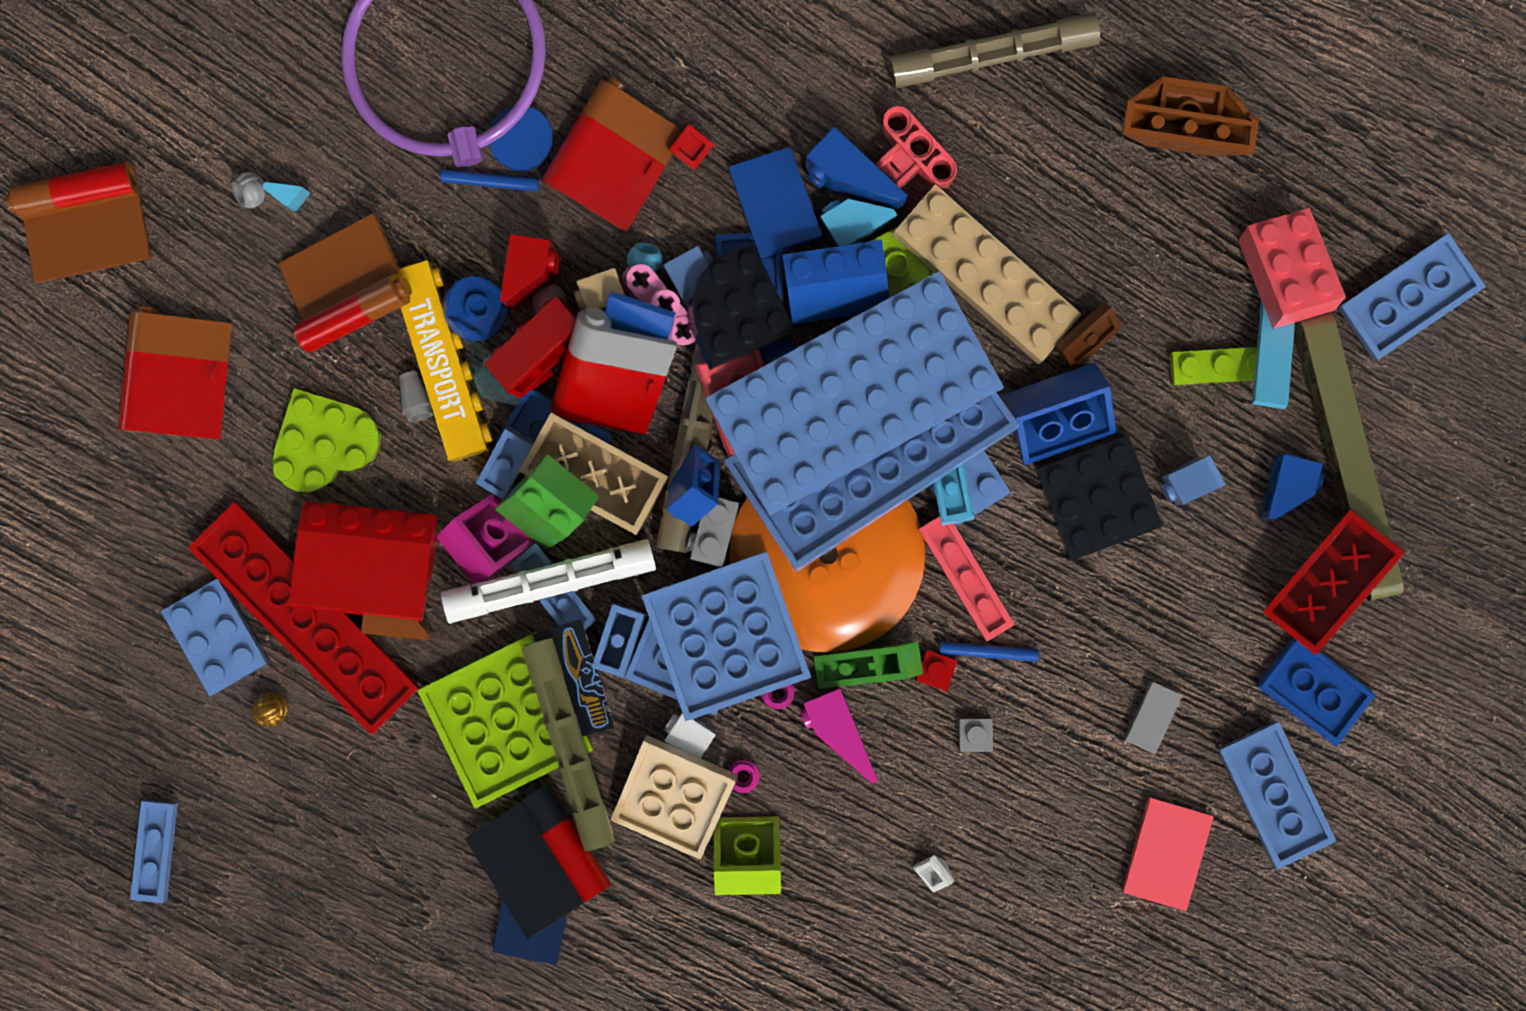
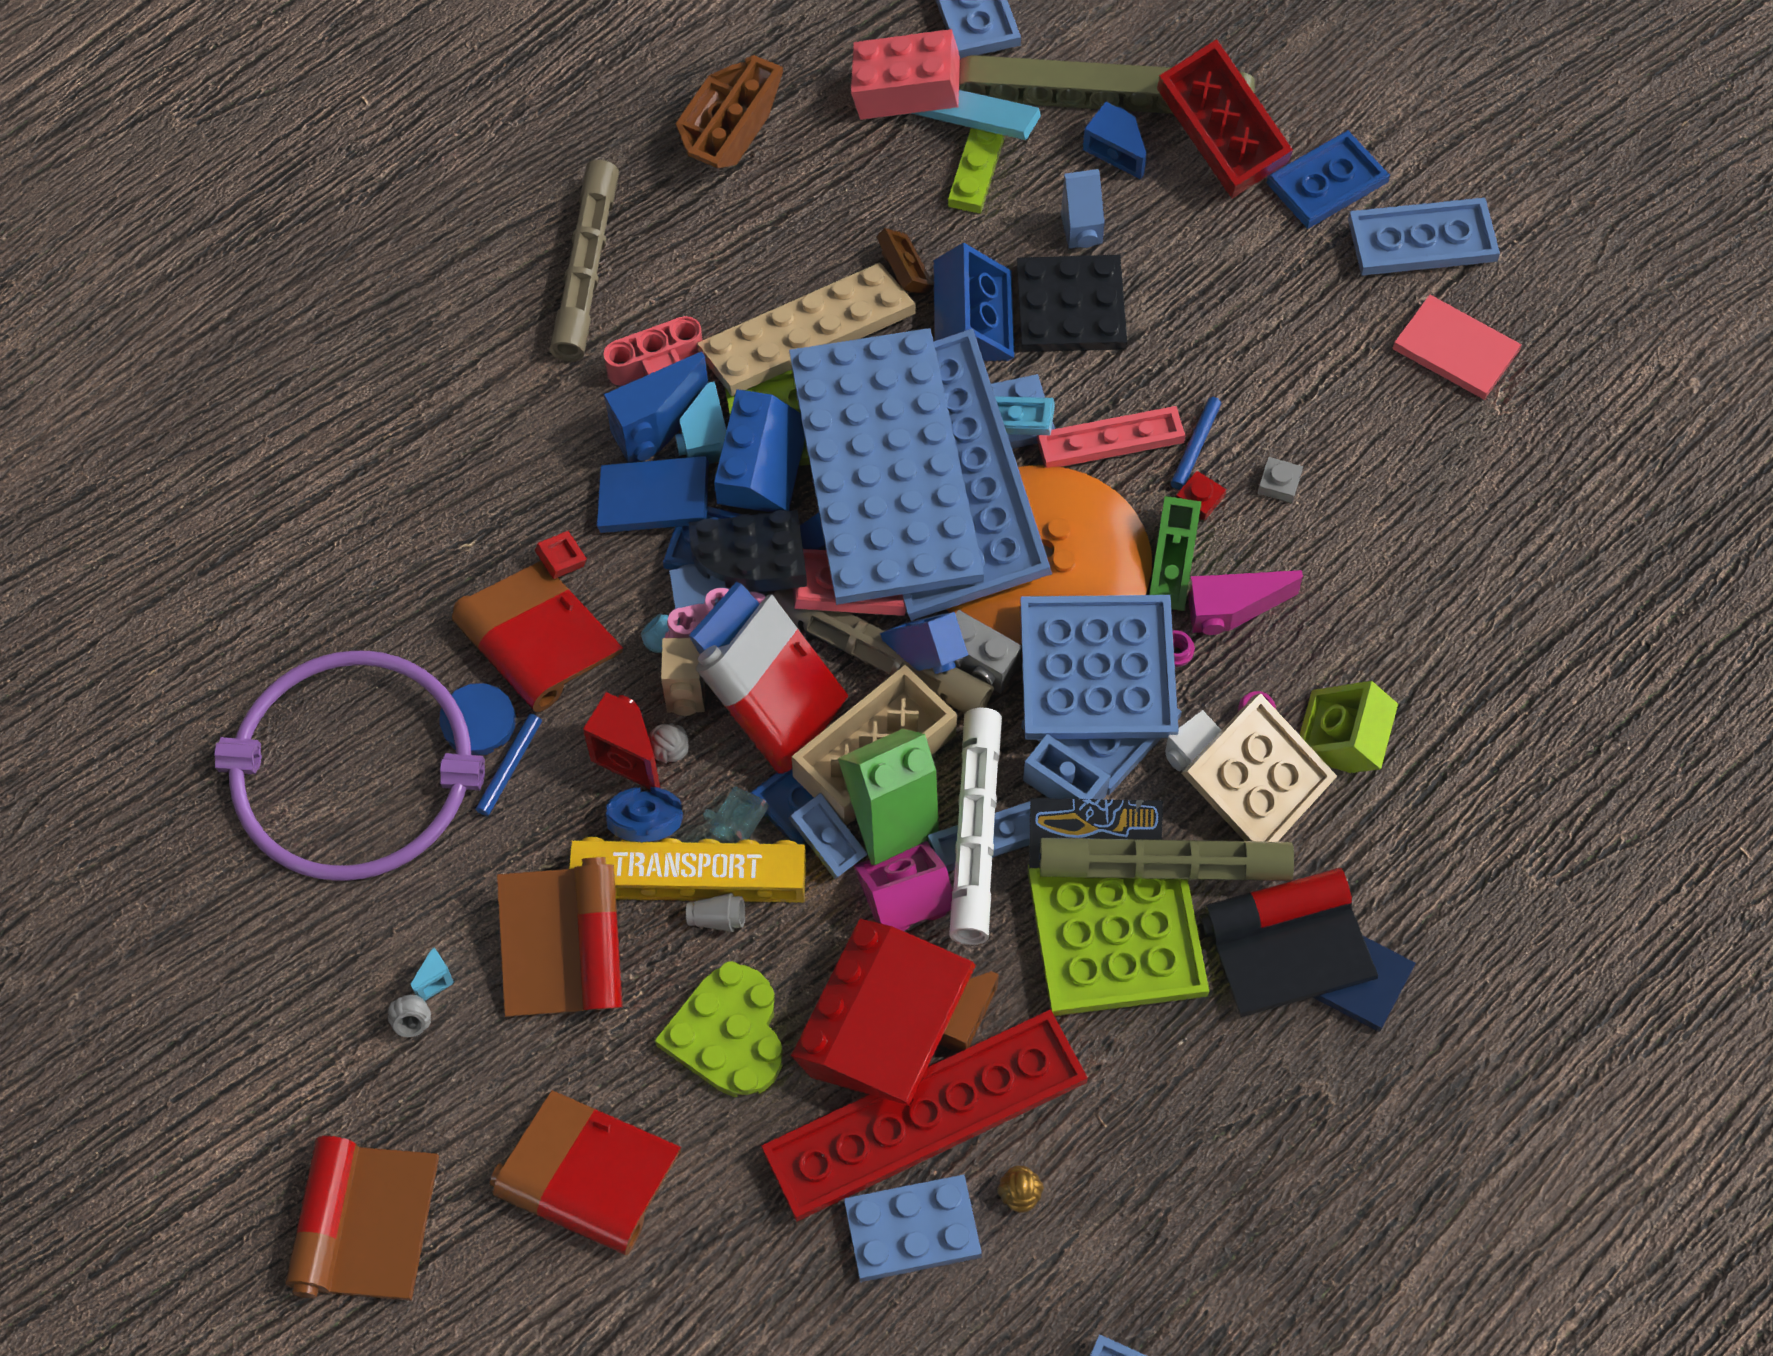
camera: 70 degrees left, 25 degrees down
(534, 349) = (714, 752): red wedge -> none
(934, 873) = (1417, 557): white slope -> none
(1153, 717) = (1312, 319): light grey tile -> none

